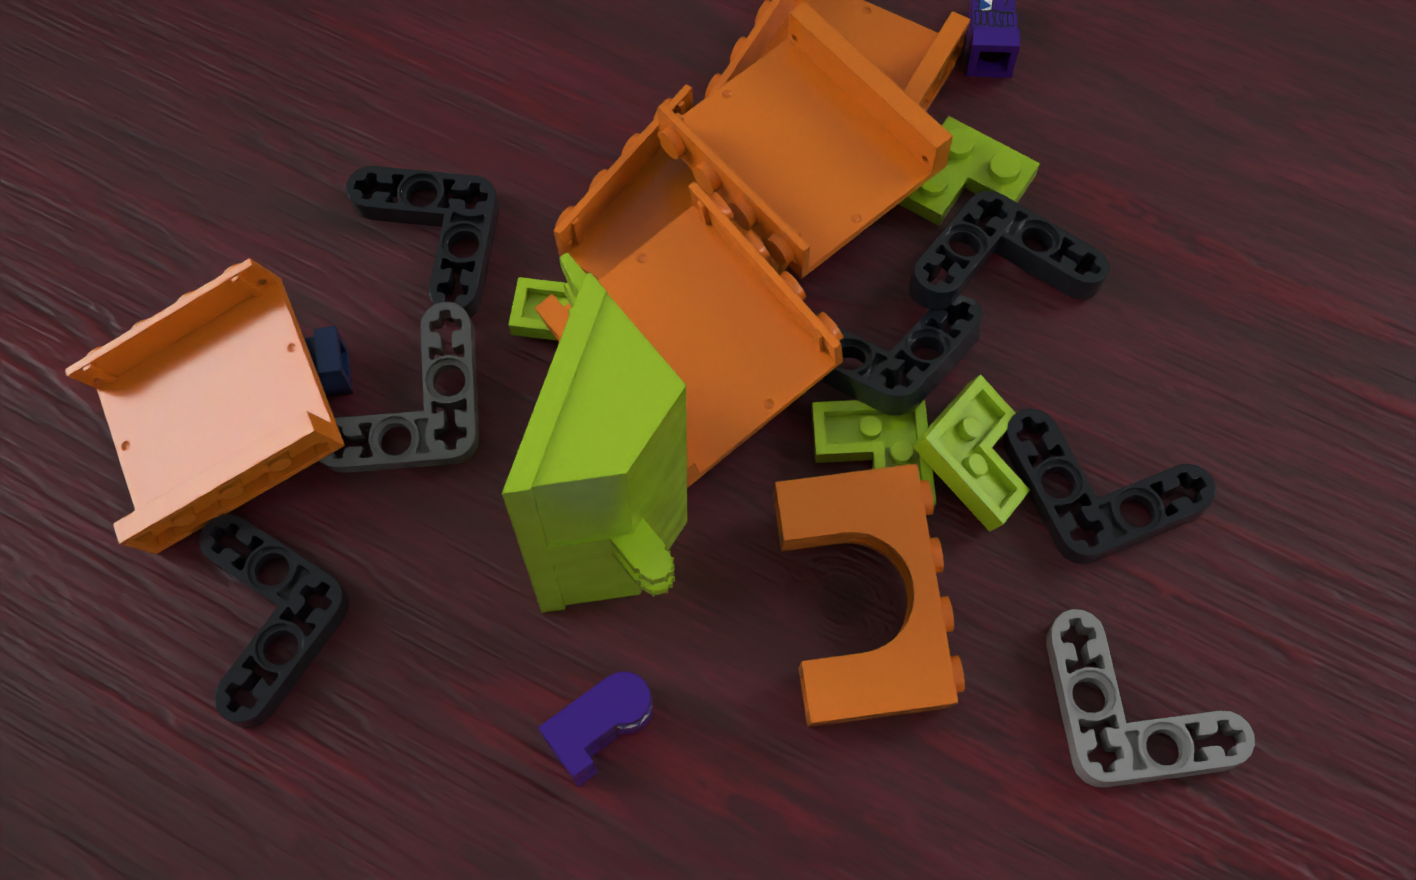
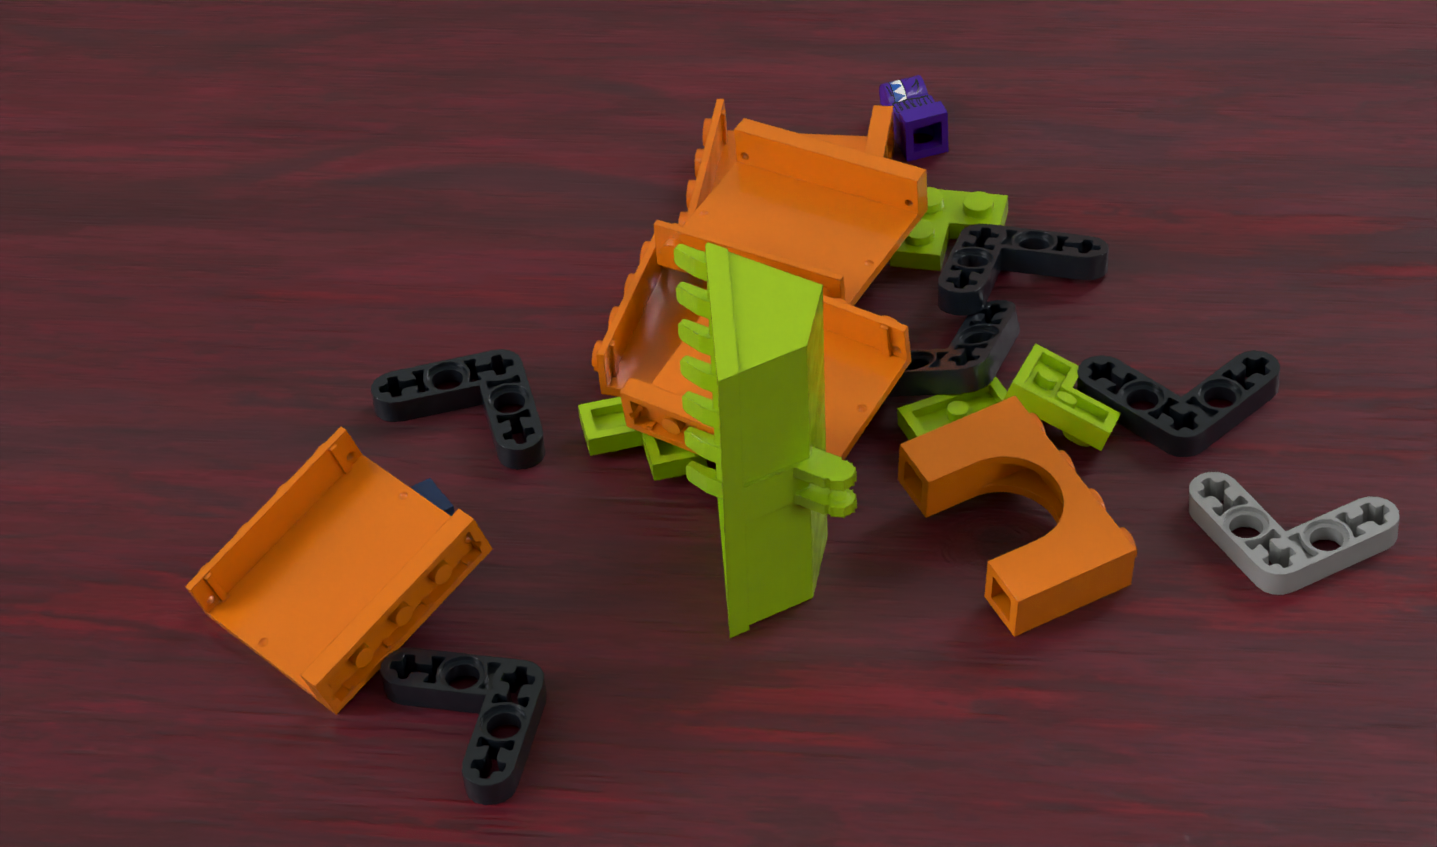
camera: 20 degrees left, 25 degrees down
(427, 424) = (546, 536): dark grey beam -> none
(596, 719) = (824, 679): dark purple leg -> none

